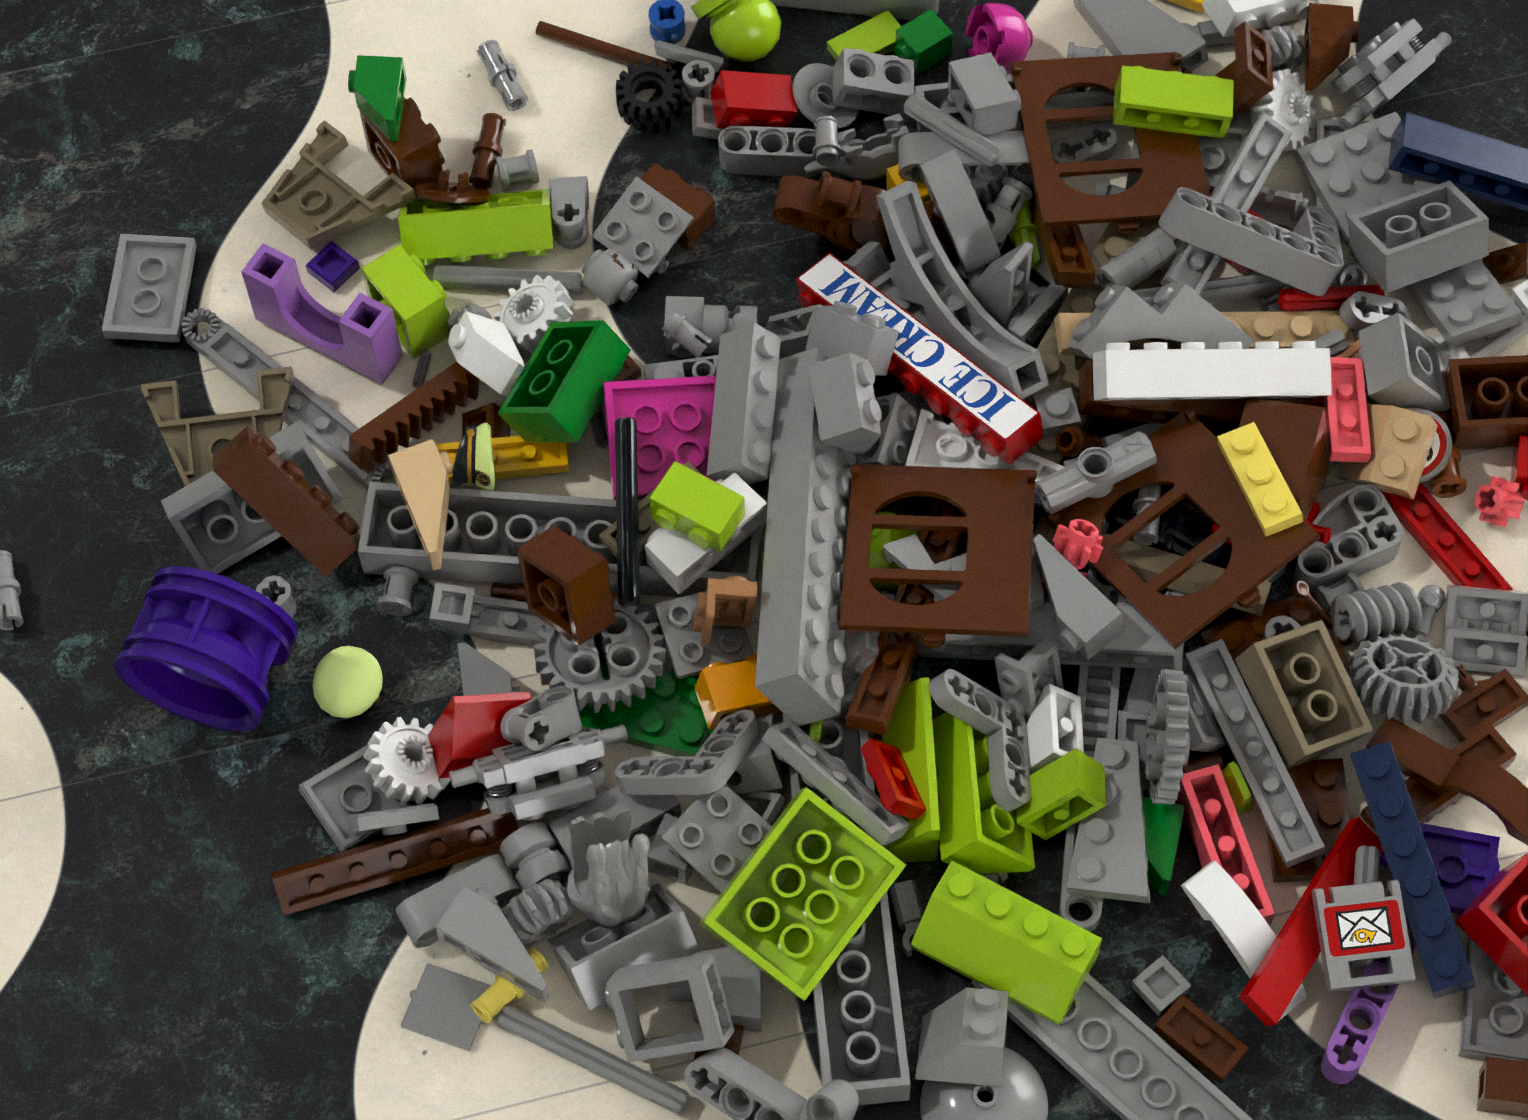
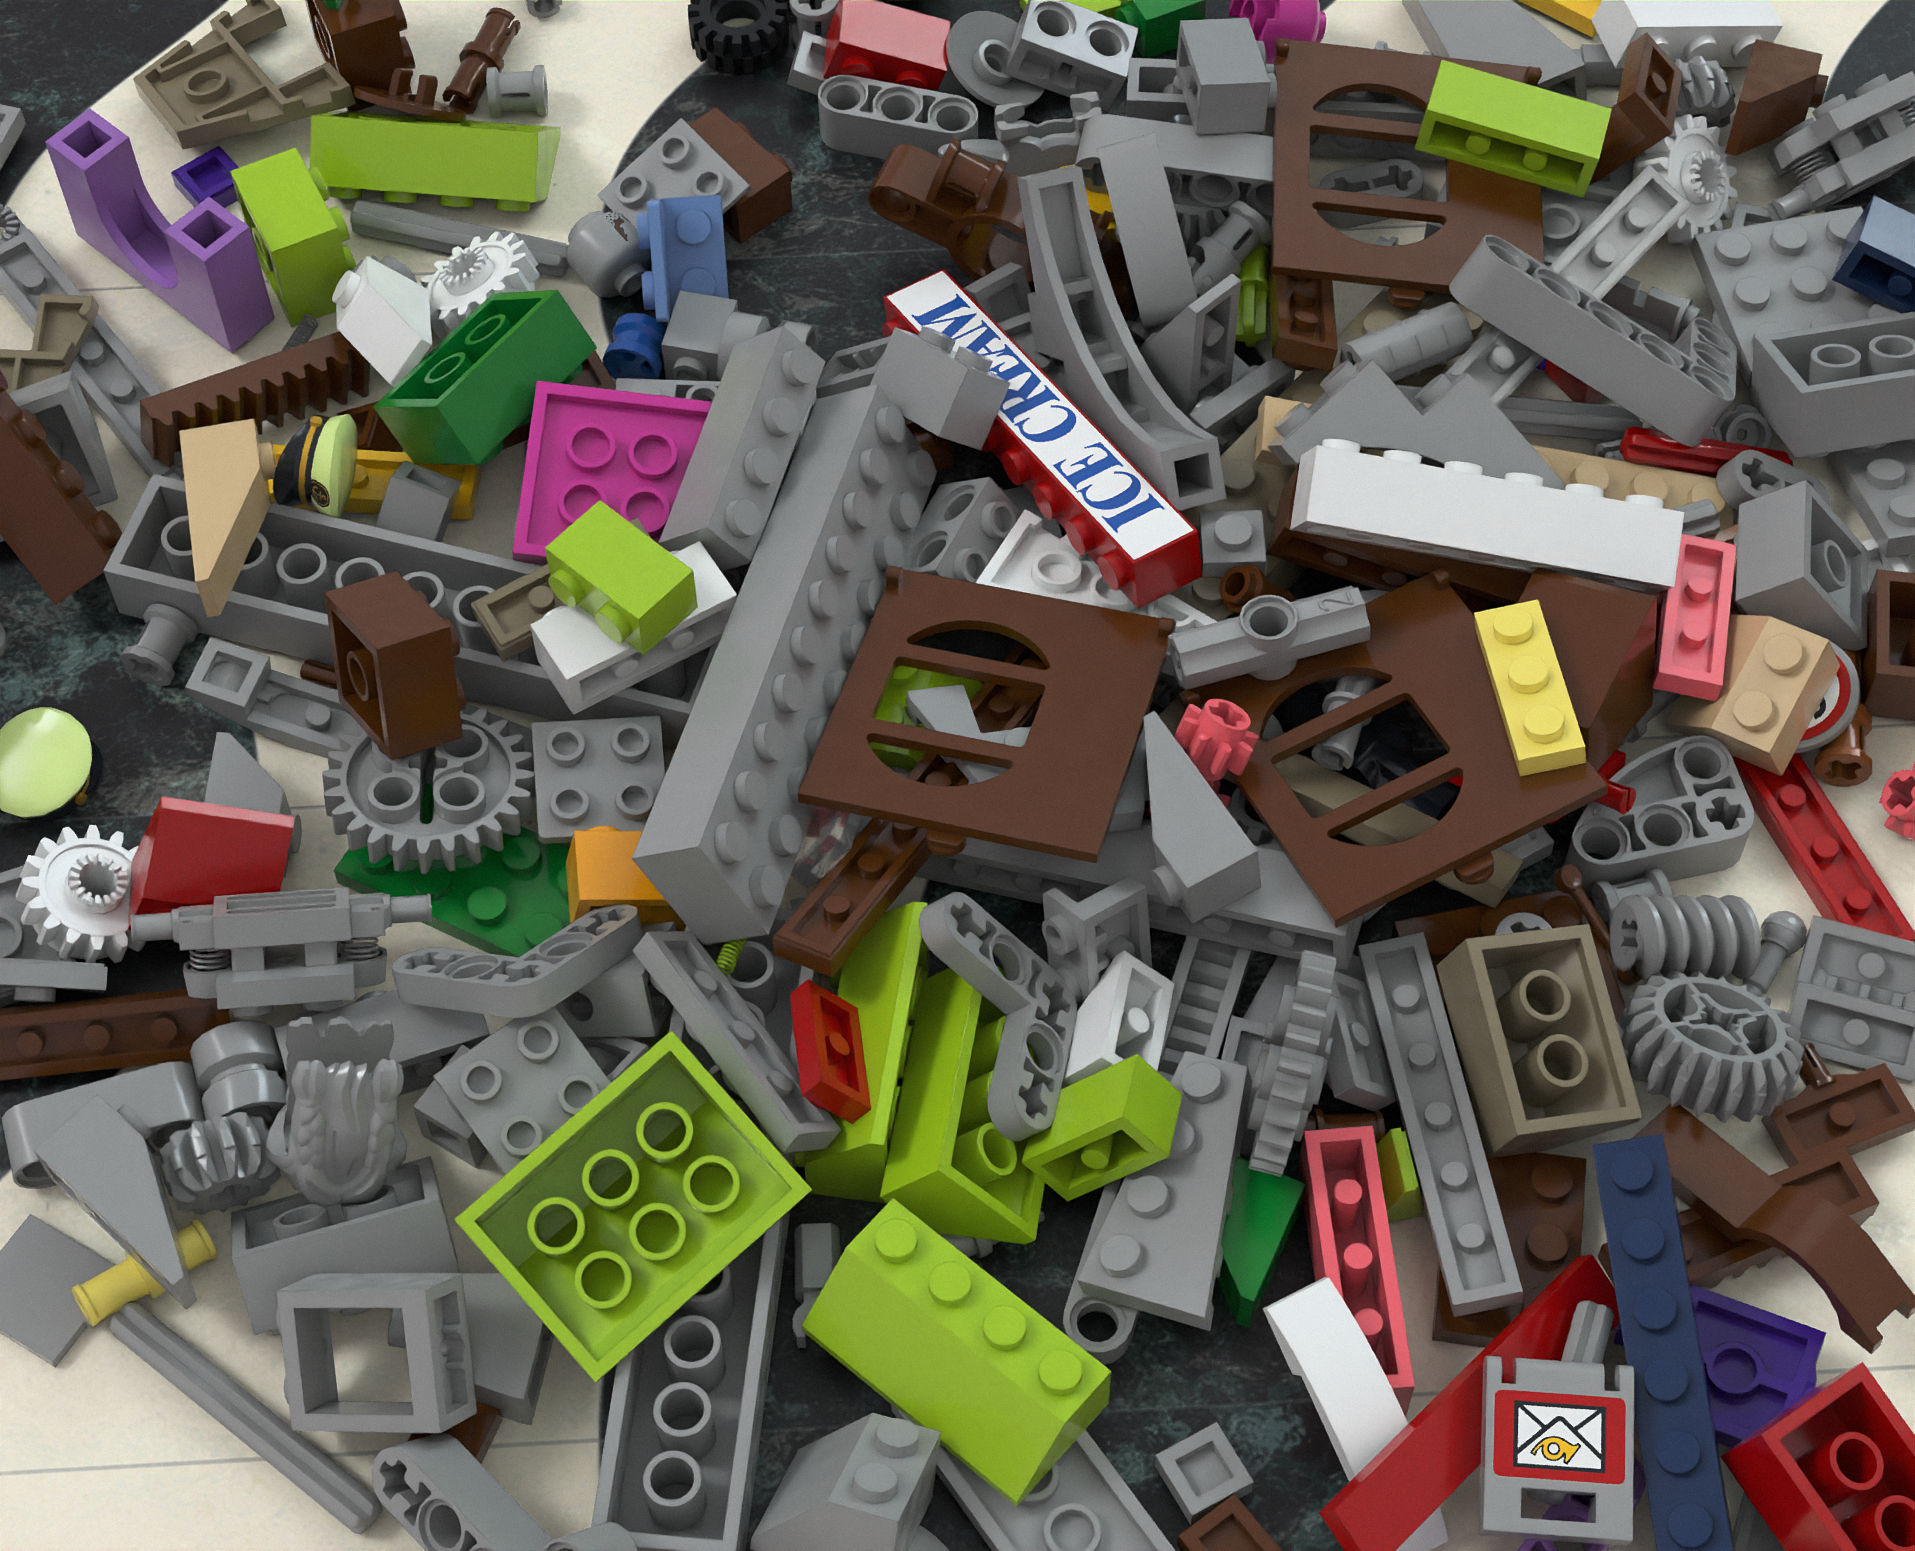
camera: 10 degrees right, 5 degrees down
(539, 470) = (418, 502): none -> light grey brick
(543, 719) = (313, 862): light grey piece -> none
(569, 210) = (578, 156): light grey piece -> none
(627, 512) = (519, 575): black axle -> none
(645, 339) = (635, 348): none -> blue wheel
(664, 270) = (685, 250): none -> medium blue bracket
(686, 334) = (692, 344): light grey pin -> none
(724, 604) = (626, 733): medium nougat bracket -> none
(827, 149) = (975, 120): light grey pin -> none
(846, 402) = (896, 467): light grey slope -> none
(952, 130) = (1165, 117): light grey axle -> none

